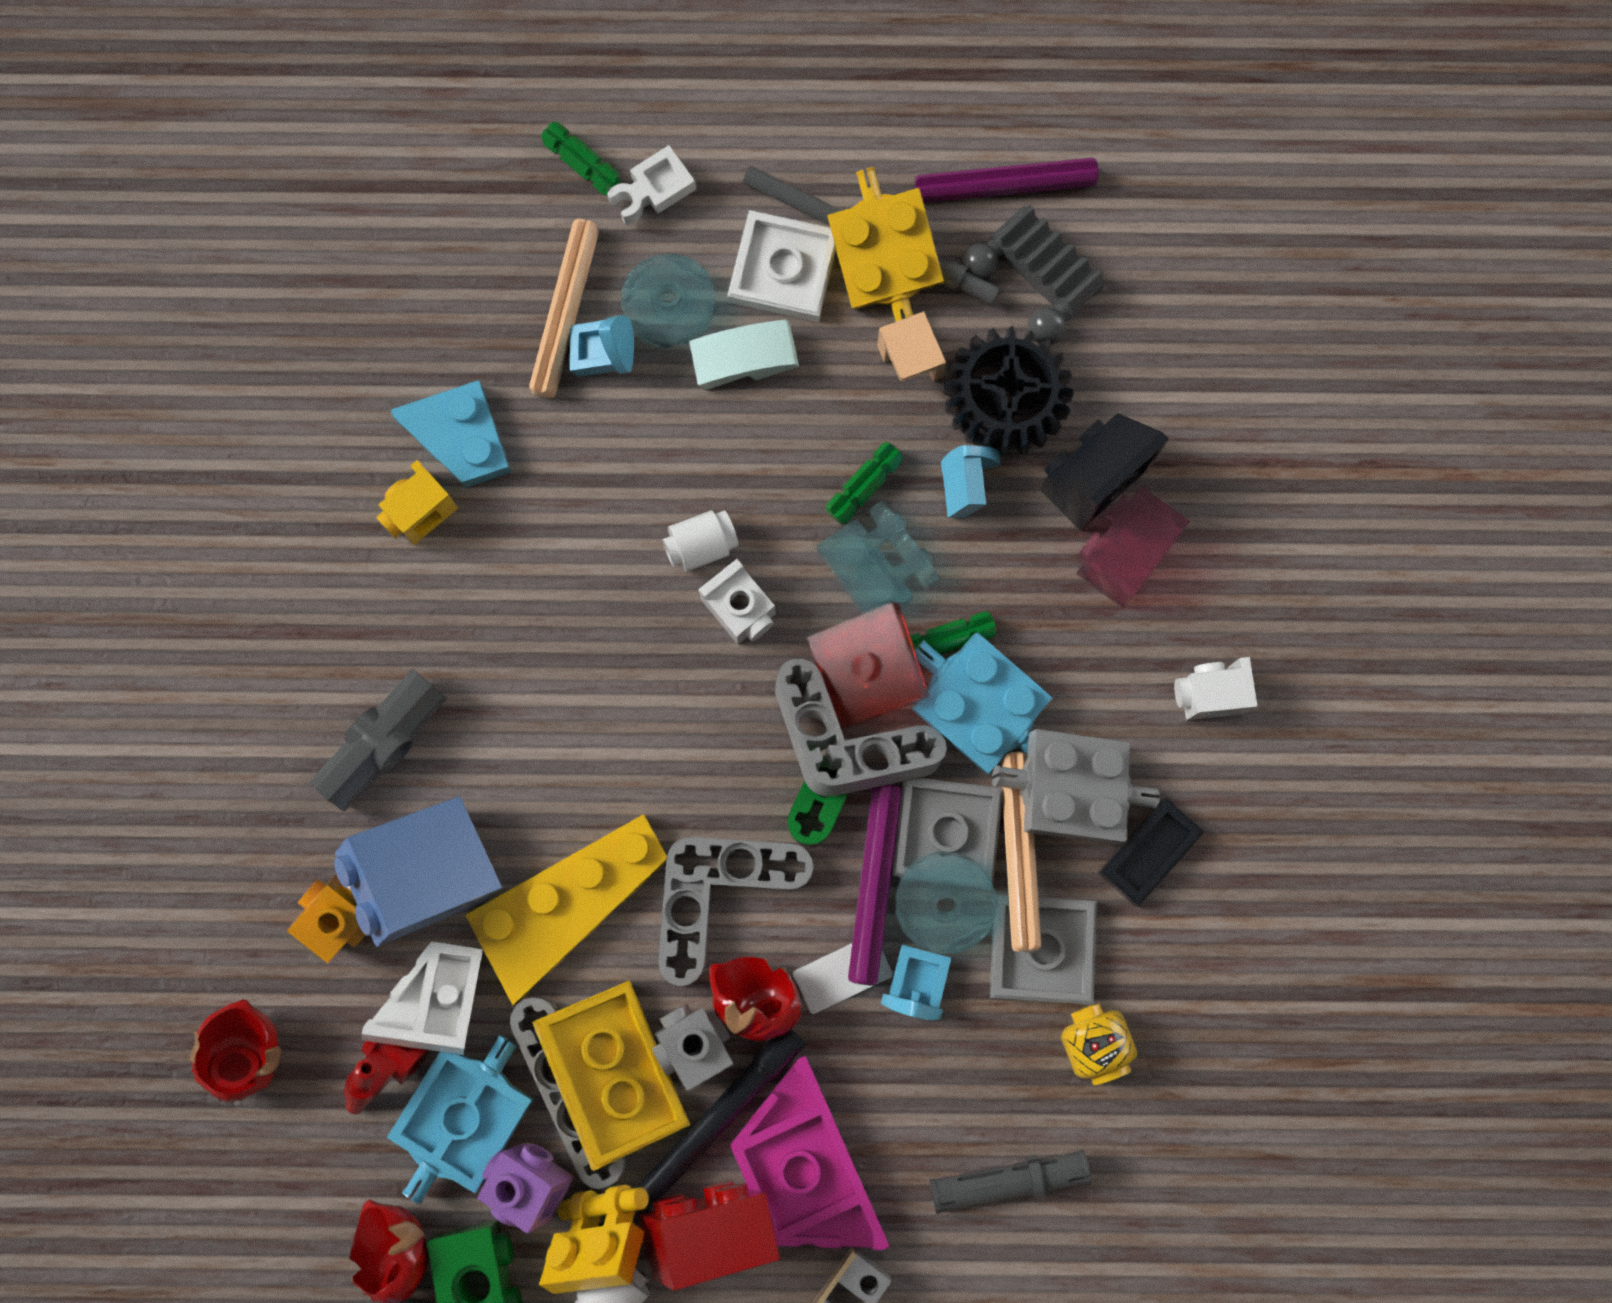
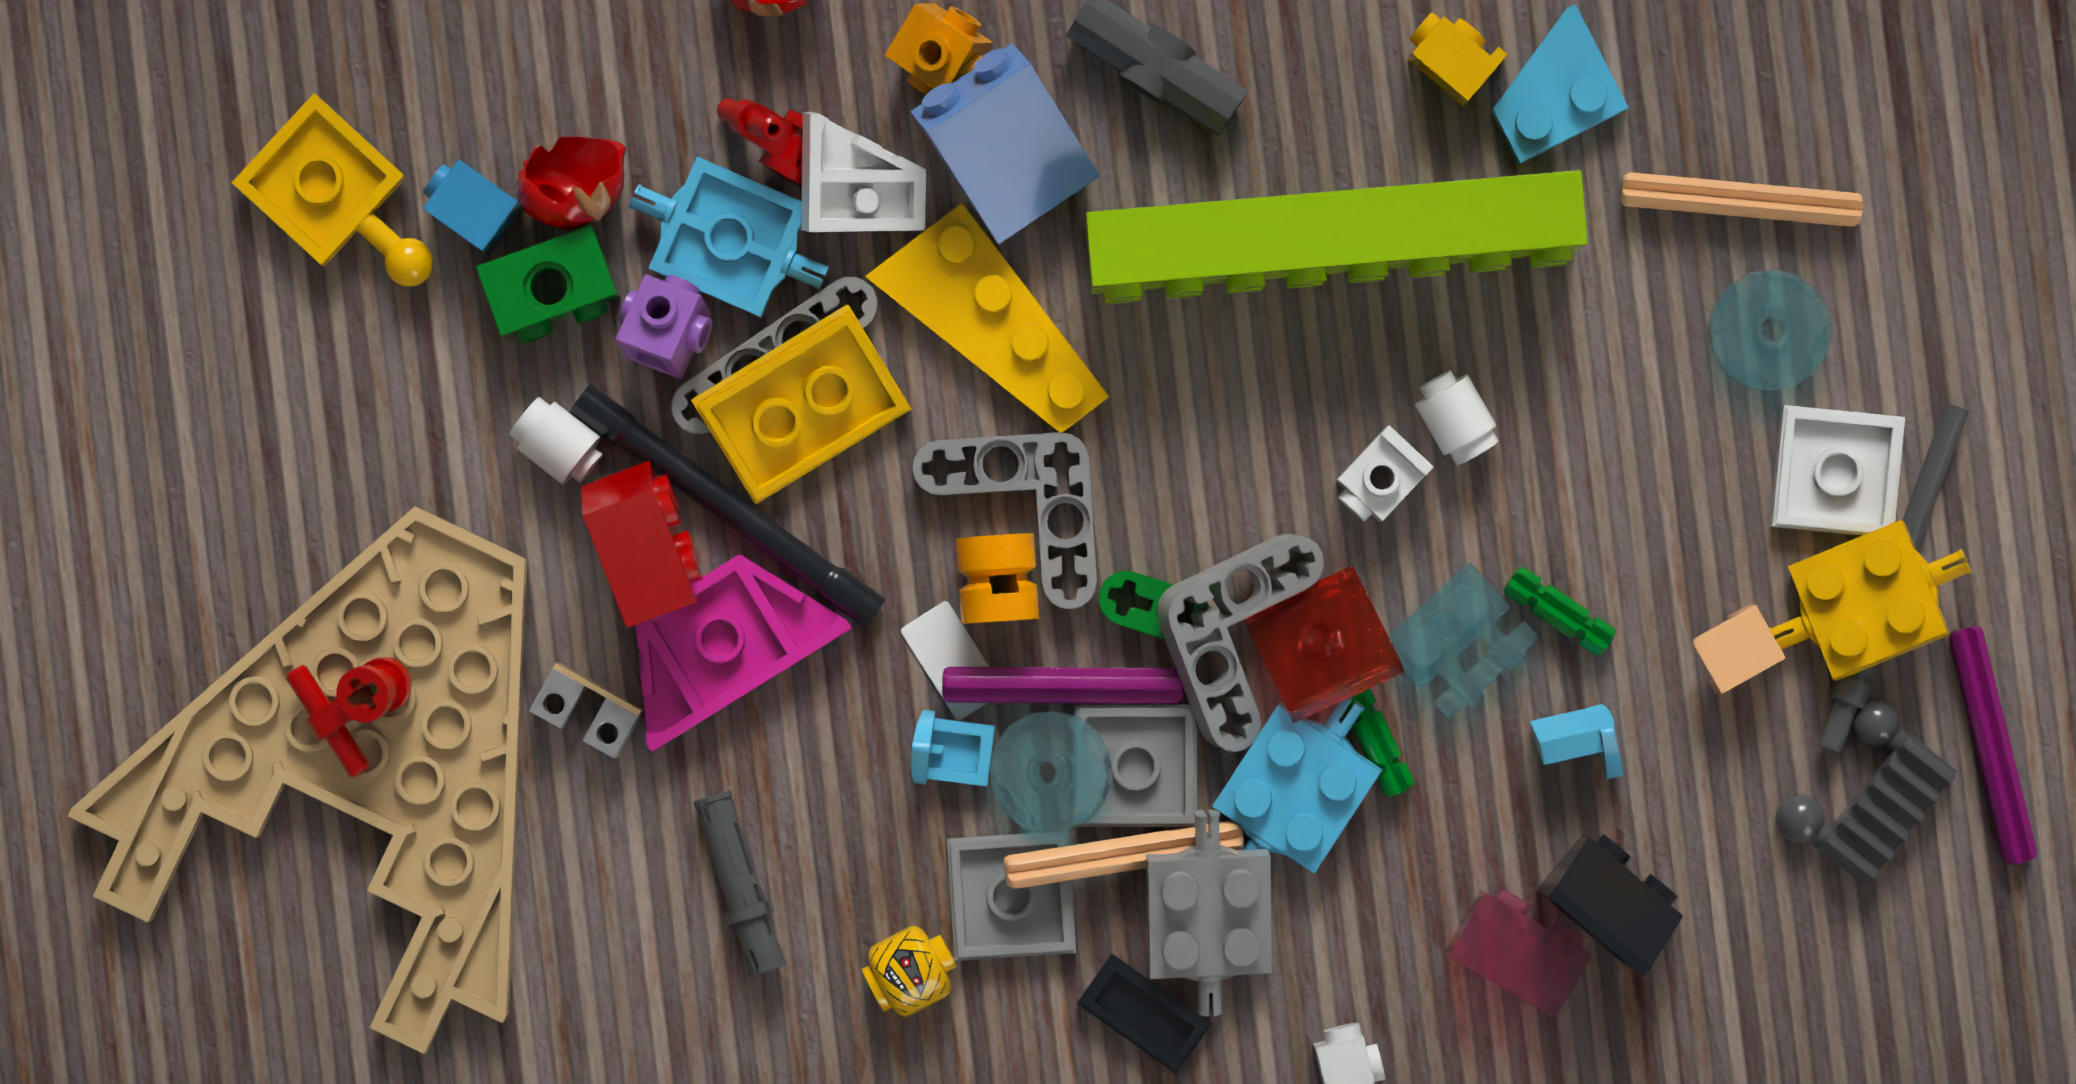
camera: 80 degrees right, 10 degrees up
(537, 614) = (1336, 233): none -> lime brick
(580, 157) = (1949, 188): green axle -> none
(591, 1254) = (601, 419): yellow plate -> none
(602, 346) = (1693, 257): medium azure tile -> none
(657, 182) = (1927, 294): white plate -> none
(709, 1056) = (838, 516): light grey brick -> none
(744, 351) = (1709, 437): light aqua slope -> none
(754, 998) = (909, 560): red hair -> none
(760, 925) = (997, 556): none -> light orange wheel
(1026, 391) = (1705, 805): black gear -> none

